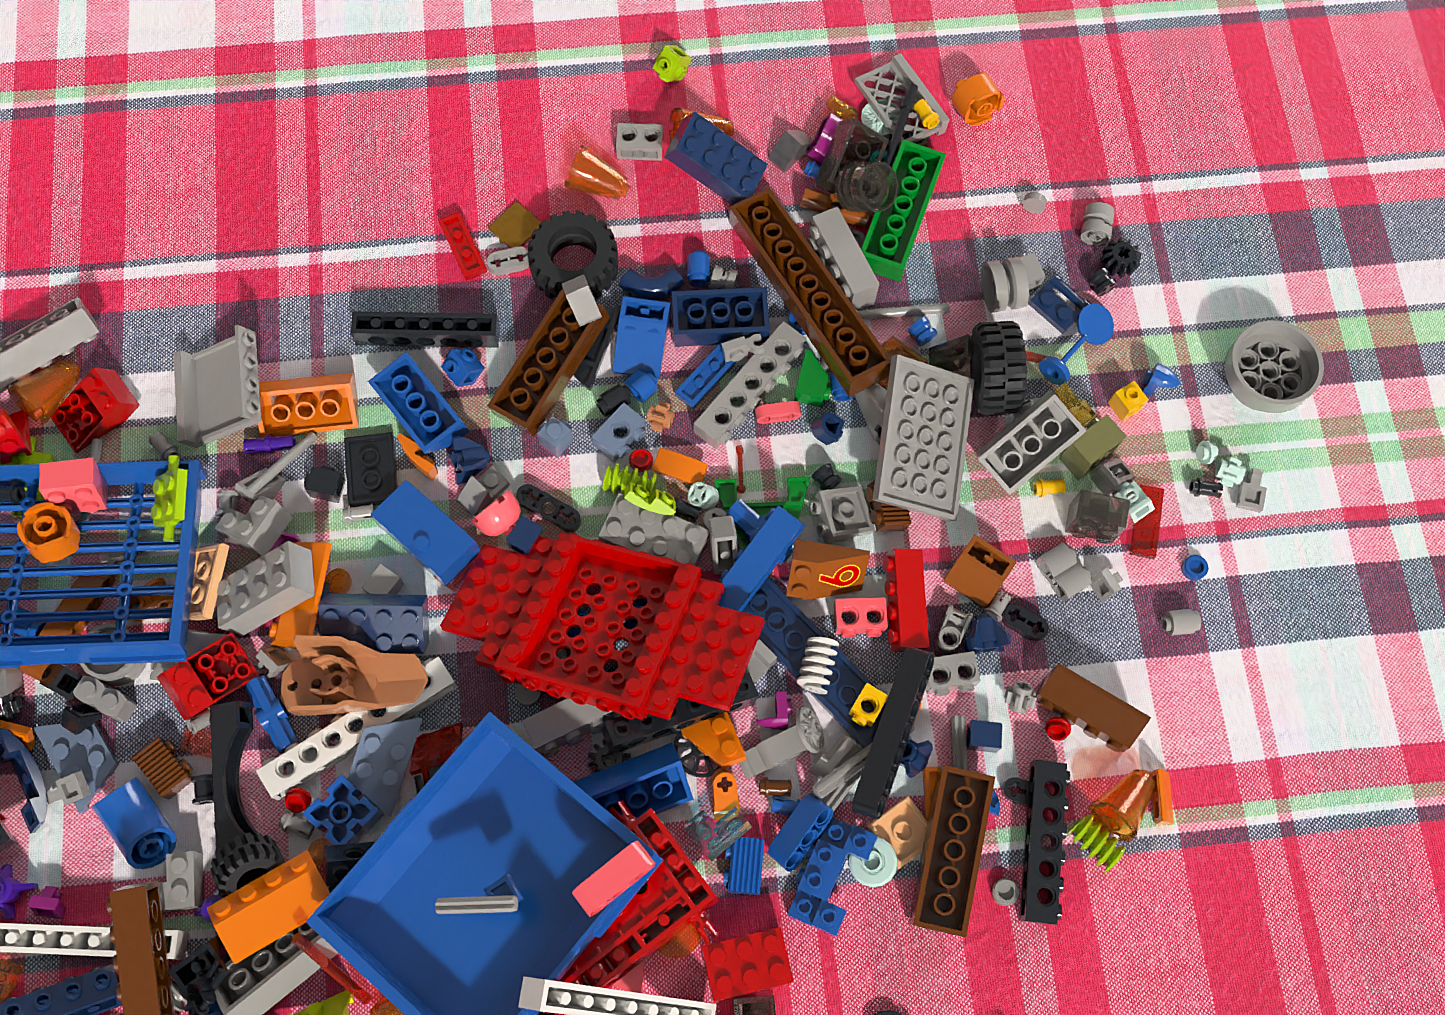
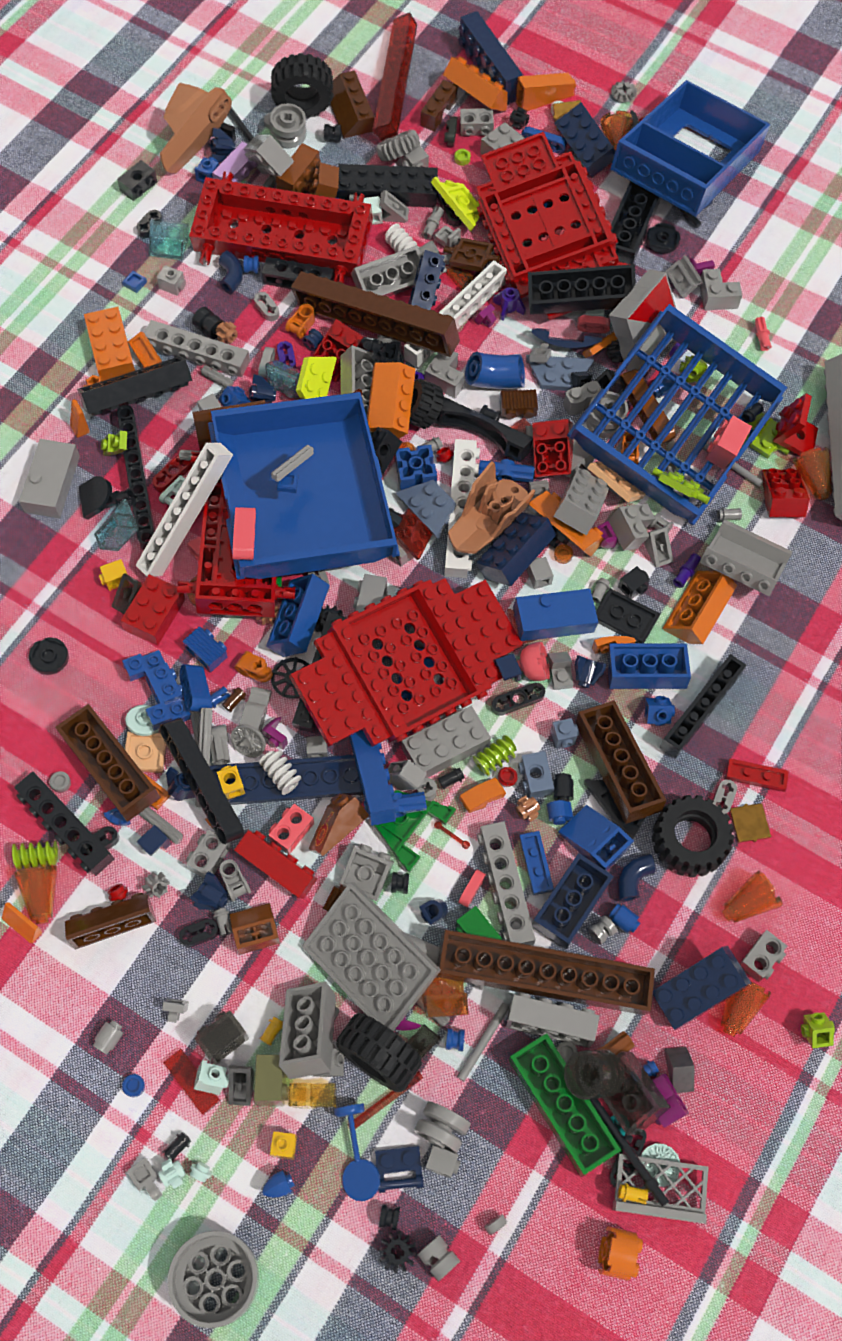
camera: 130 degrees right, 5 degrees down
(49, 532) = (705, 414): orange brick -> none
(278, 466) = (664, 563): light grey bar -> none
(581, 300) = (646, 799): light grey slope -> none
(657, 502) = (466, 751): lime slope -> none
(703, 495) = (450, 792): light aqua wheel -> none
(717, 739) = (280, 685): orange wing -> none
(718, 836) = (234, 640): clear light blue plate -> none
(739, 348) = (536, 888): light grey plate -> none
(841, 108) = (685, 1135): clear yellow cone -> none
(1064, 571) = (207, 986): light grey brick -> none

